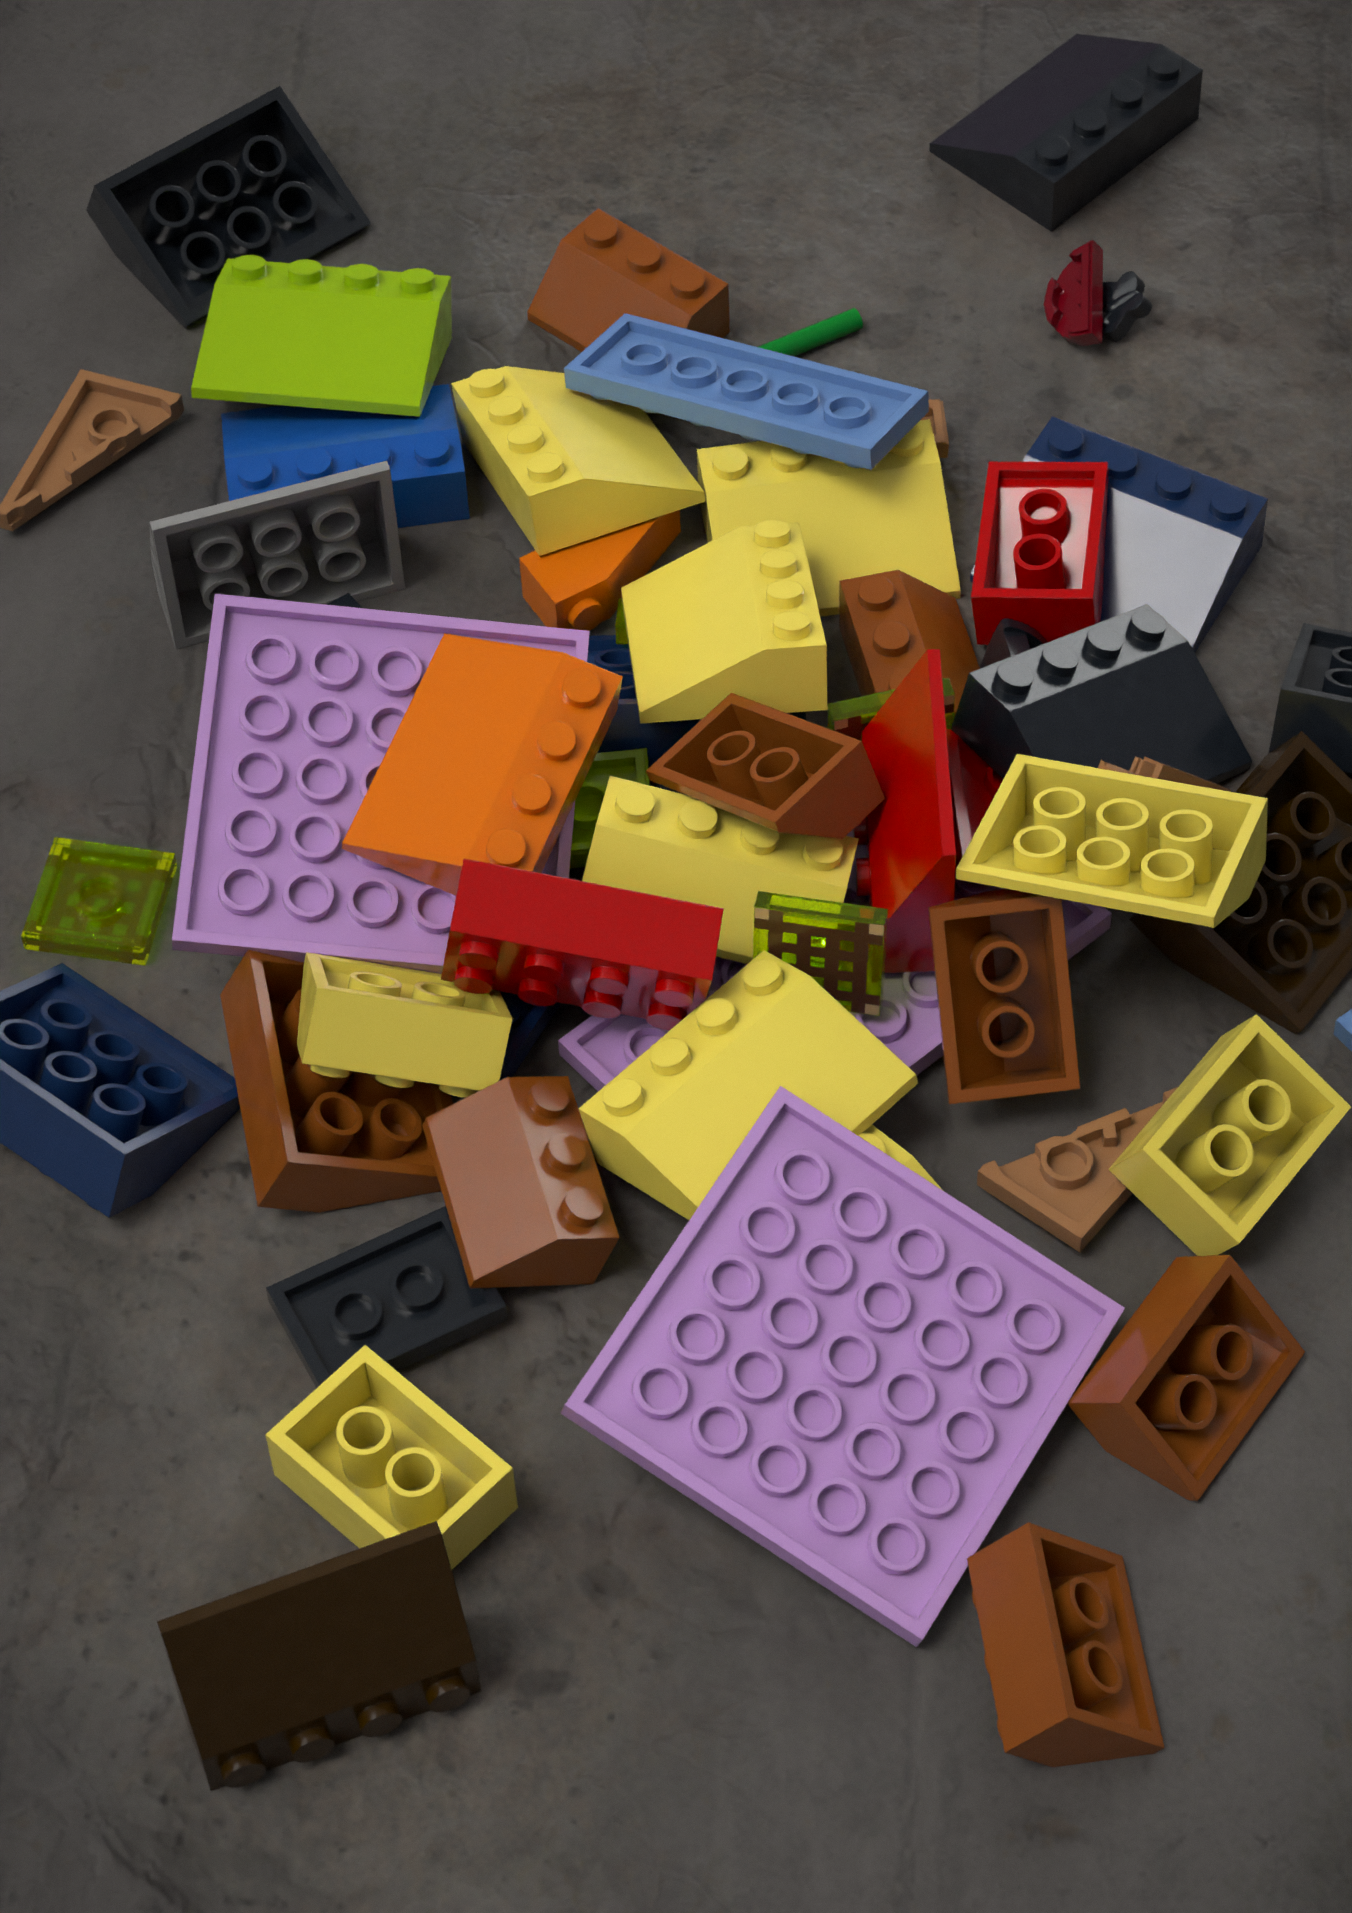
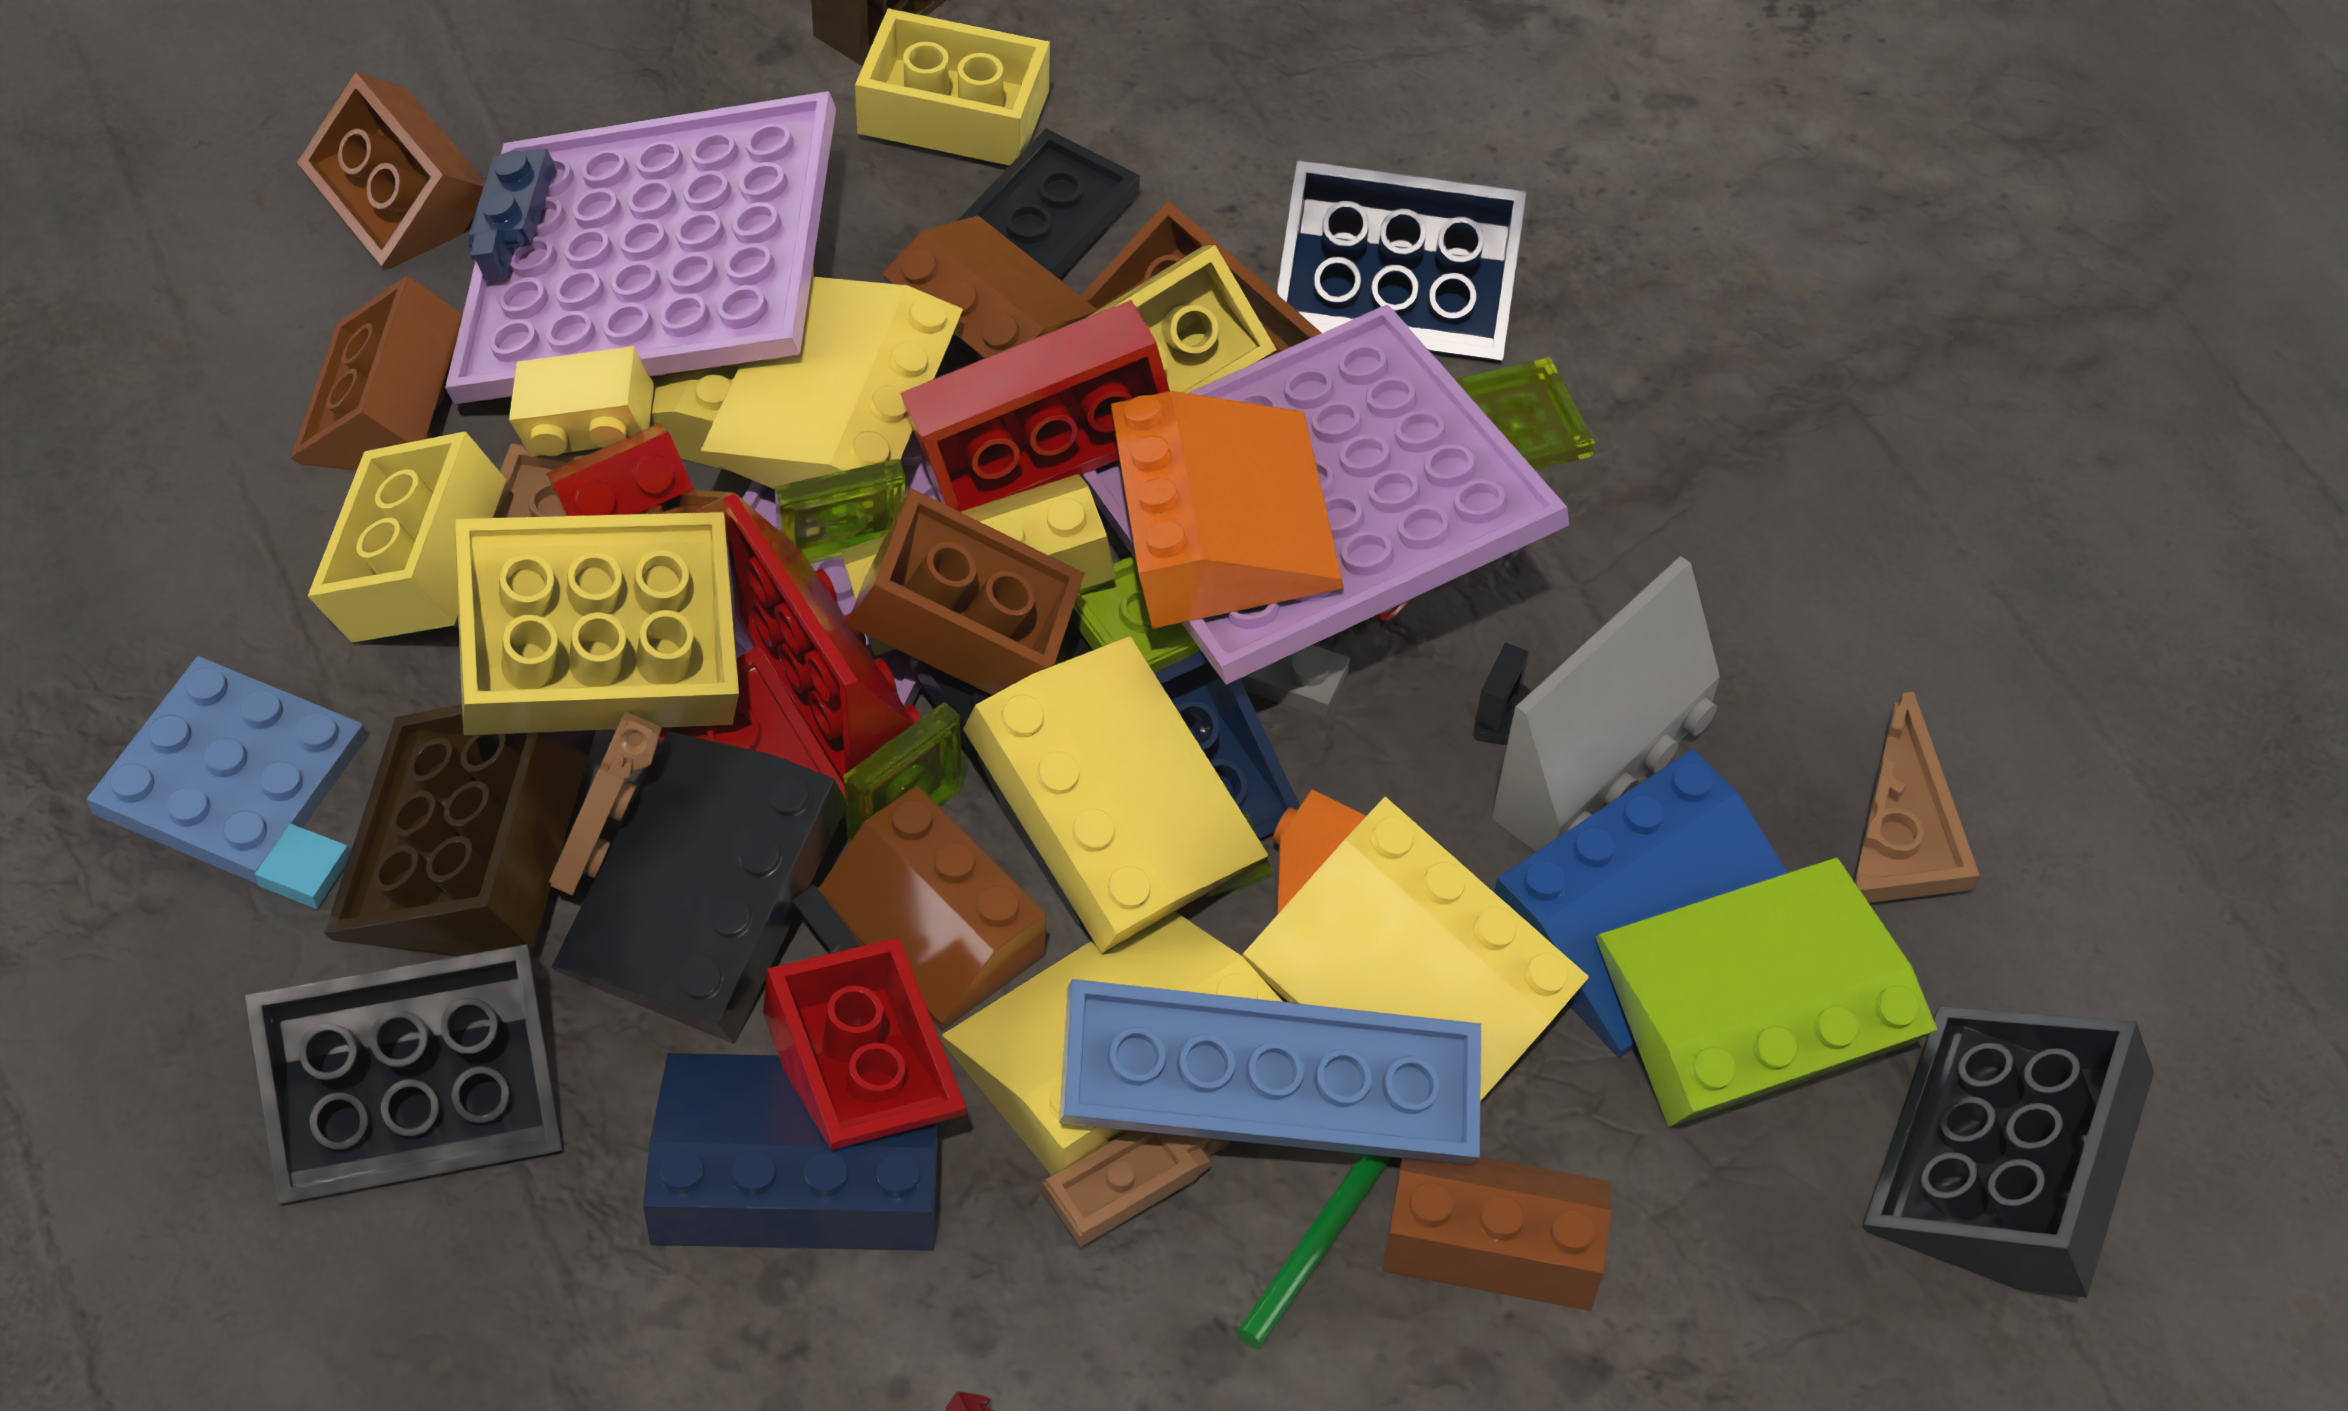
camera: 145 degrees right, 0 degrees up
(965, 1498) = (509, 209): none -> dark blue hinge
(1006, 1086) = (623, 476): none -> red brick
(1007, 1182) = (580, 401): none -> light yellow brick

